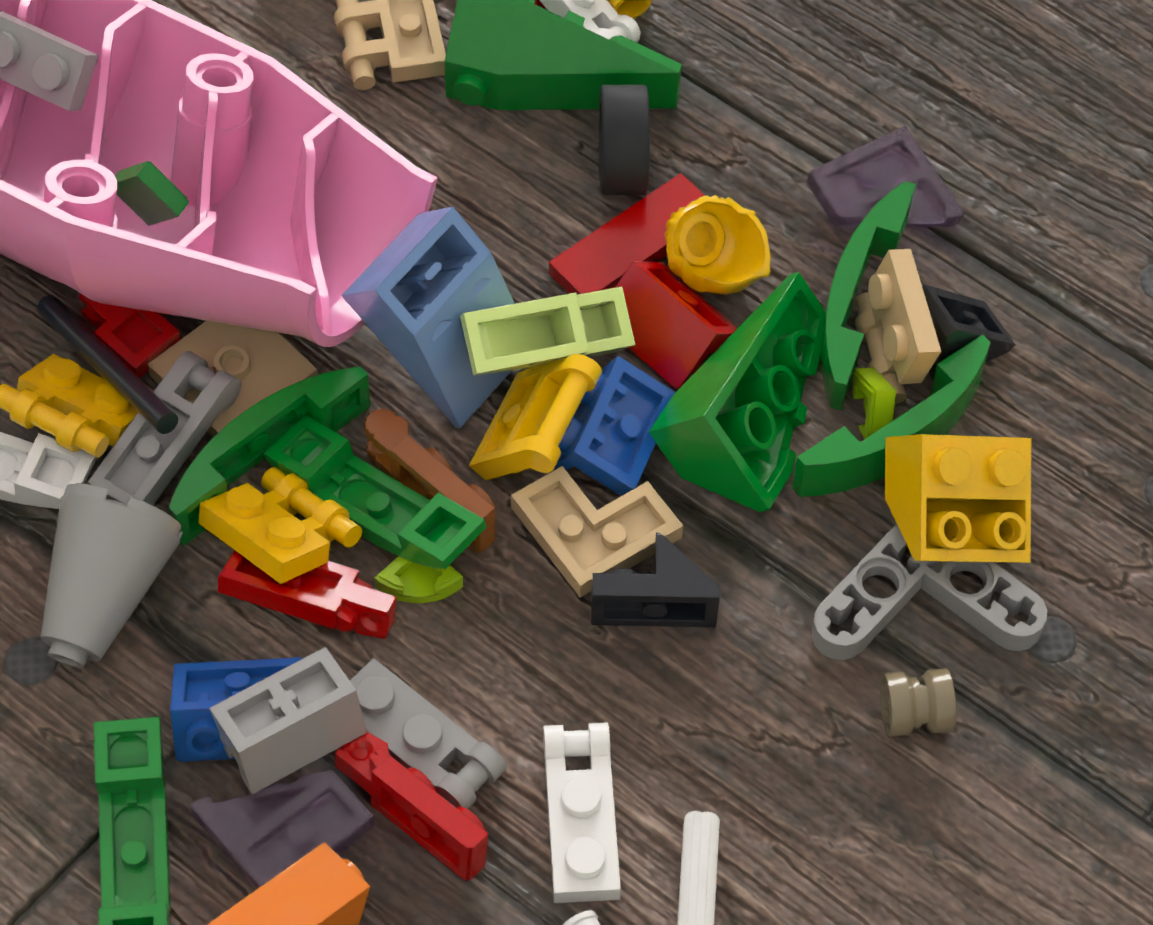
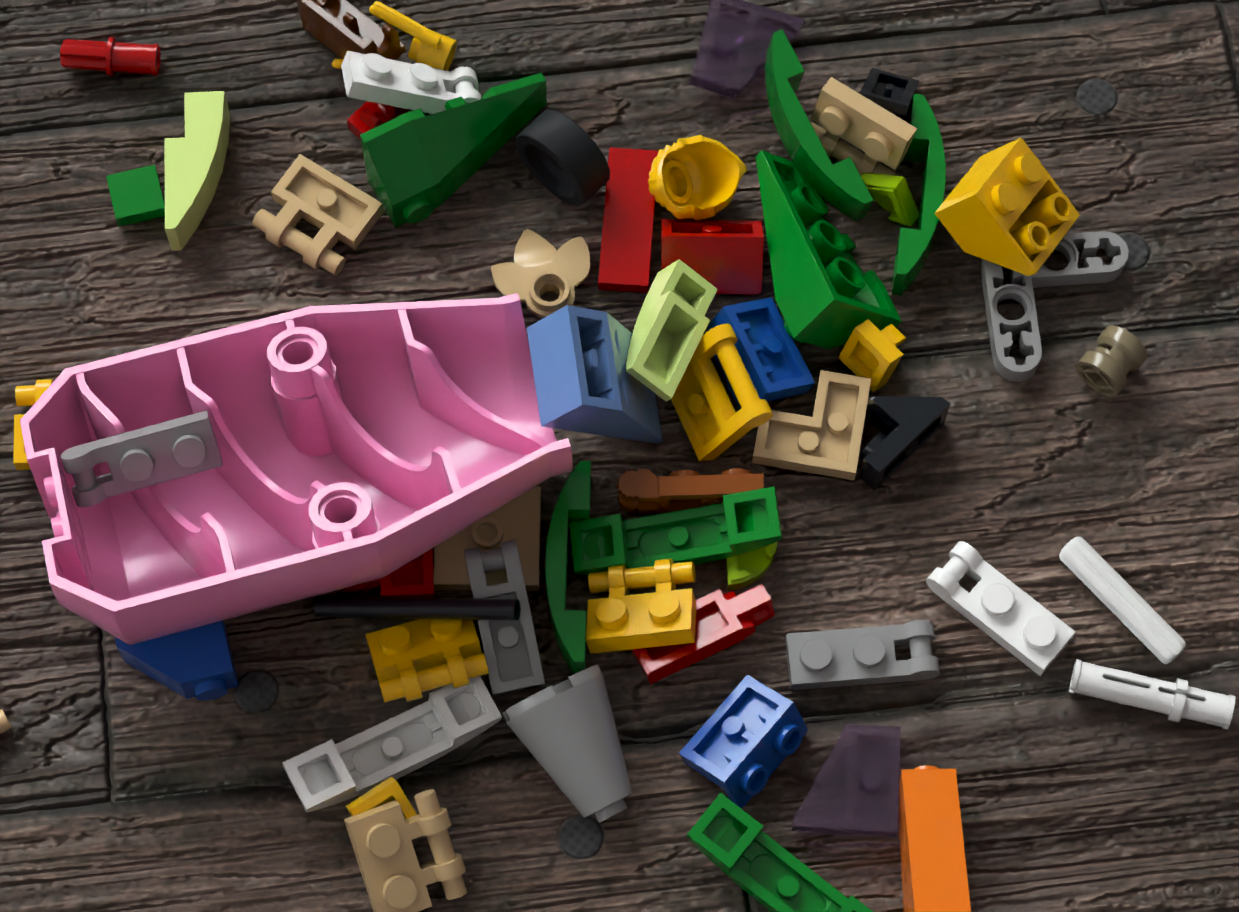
camera: 45 degrees left, 10 degrees up
(150, 193) = (327, 468): green tile -> none
(289, 719) = (801, 717): light grey hinge -> none
(414, 805) = (911, 697): red hinge -> none
(518, 217) = (543, 269): none -> tan plate
(712, 510) = (873, 352): none -> yellow tile

